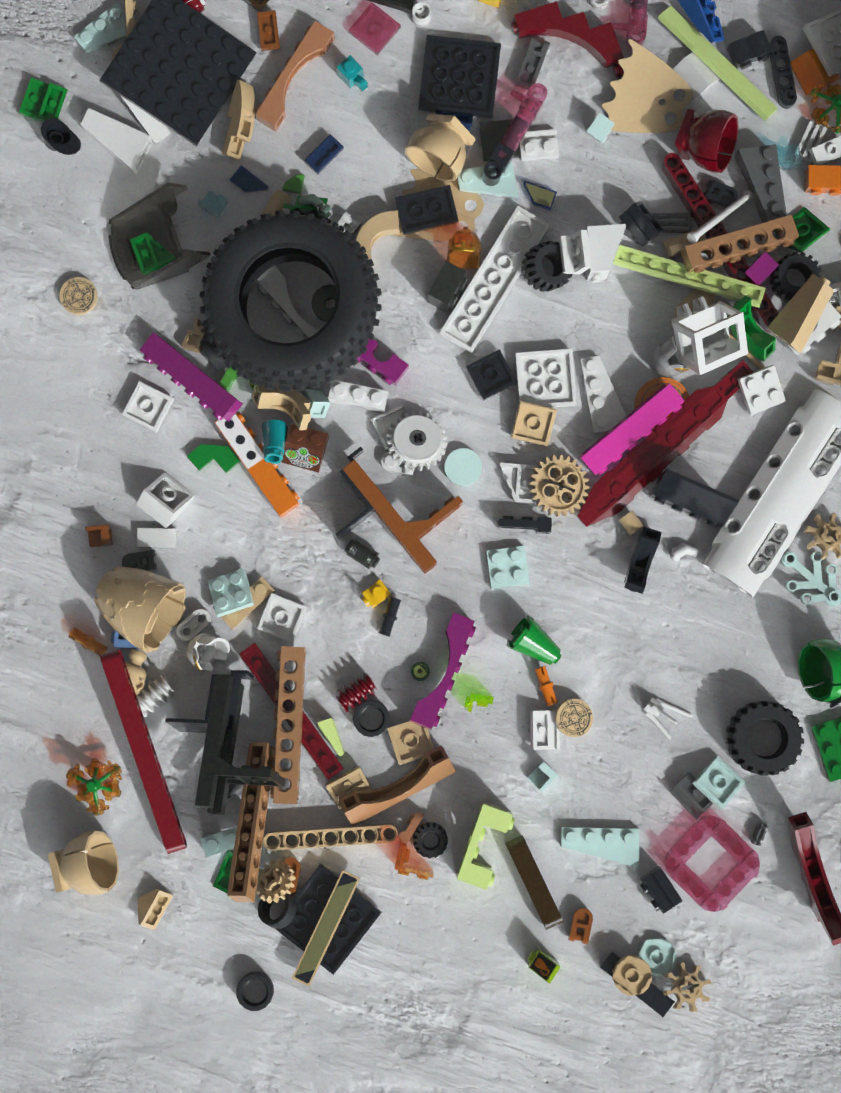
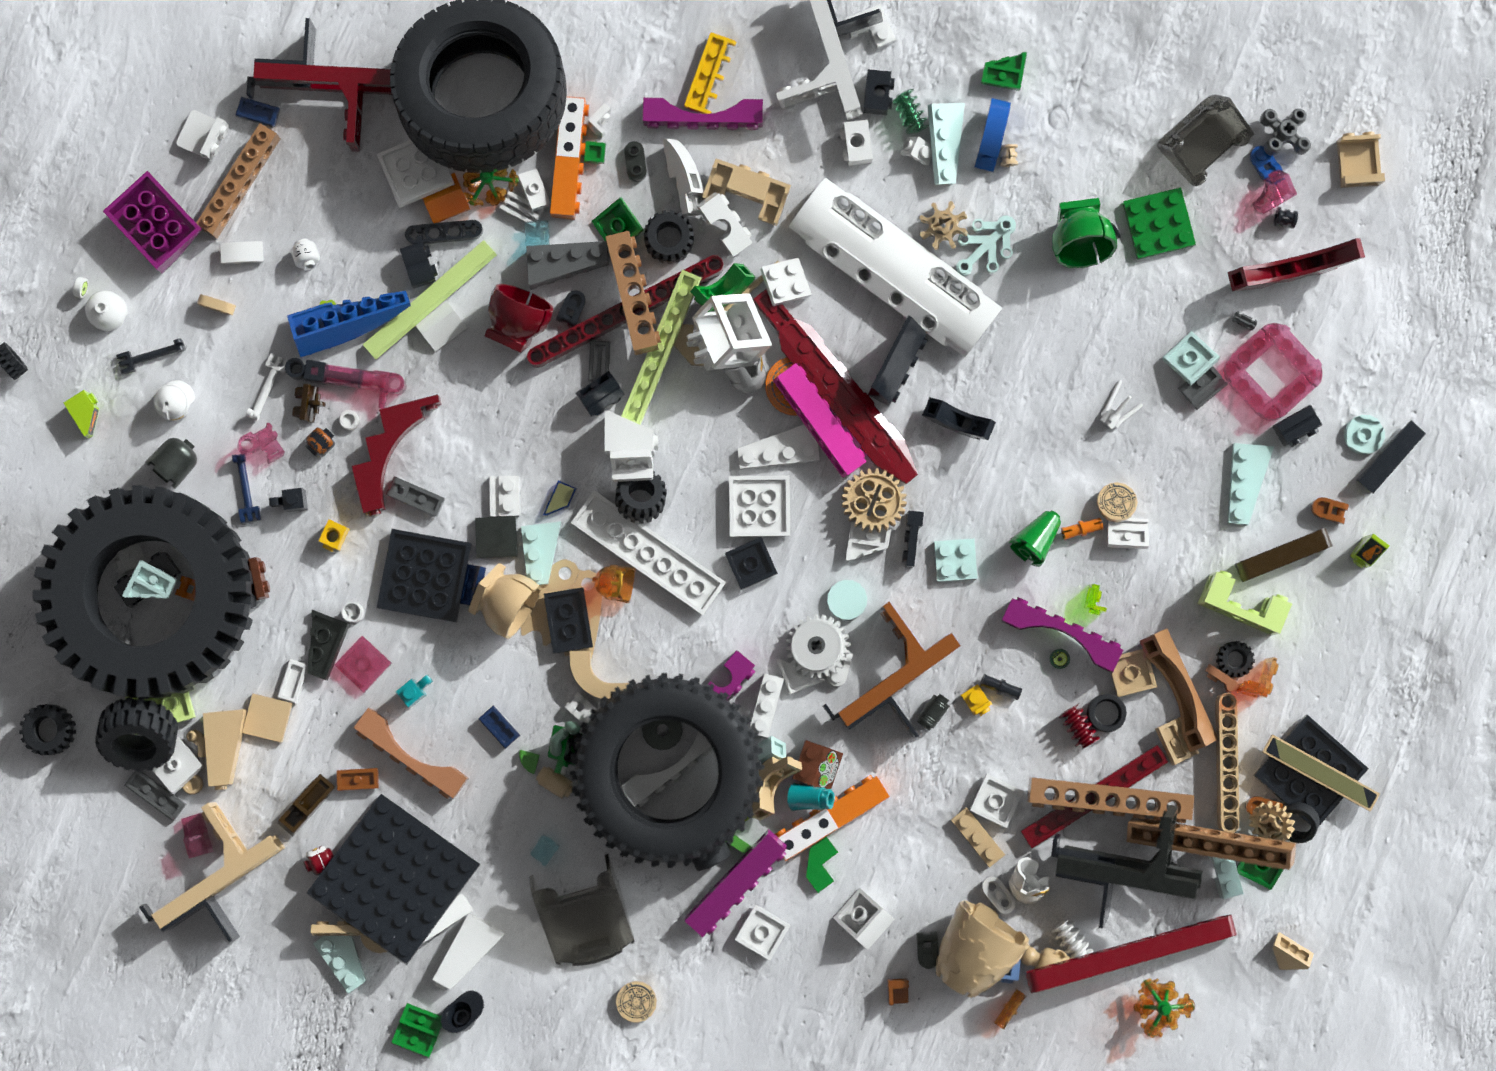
camera: 90 degrees left, 0 degrees up
(85, 867) = (1245, 1020): tan plate -> none
(150, 253) = (597, 919): green wing -> none
(156, 538) = (903, 930): white tile -> none
(193, 337) = (691, 877): tan plate -> none
(230, 592) = (967, 853): light aqua plate -> none
(240, 991) = (1397, 851): black tyre -> none
(242, 120) = (461, 813): tan slope -> none
(247, 181) = (522, 812): tile -> none
(330, 731) = (1117, 757): yellowish green slope -> none
(447, 286) = (655, 603): pearl dark grey brick -> none
(516, 131) = (492, 519): clear pink piece -> none
(533, 423) = (806, 522): tan tile -> none
(542, 776) = (1175, 538): light aqua panel -> none
(600, 127) = (493, 429): light aqua panel -> none
(631, 523) = (917, 428): tan piece -> none
(632, 975) = (1383, 461): tan tile -> none
(639, 91) = (458, 385): tan piece -> none
(674, 245) = (623, 350): tan bracket -> none
(682, 980) = (1403, 402): tan gear -> none
(683, 549) = (948, 377): white arm -> none
(746, 197) = (576, 280): white bar -> none
(761, 268) = (659, 272): magenta slope -> none
(790, 738) = (1162, 285): black tyre -> none
(802, 313) = (712, 234): tan slope -> none

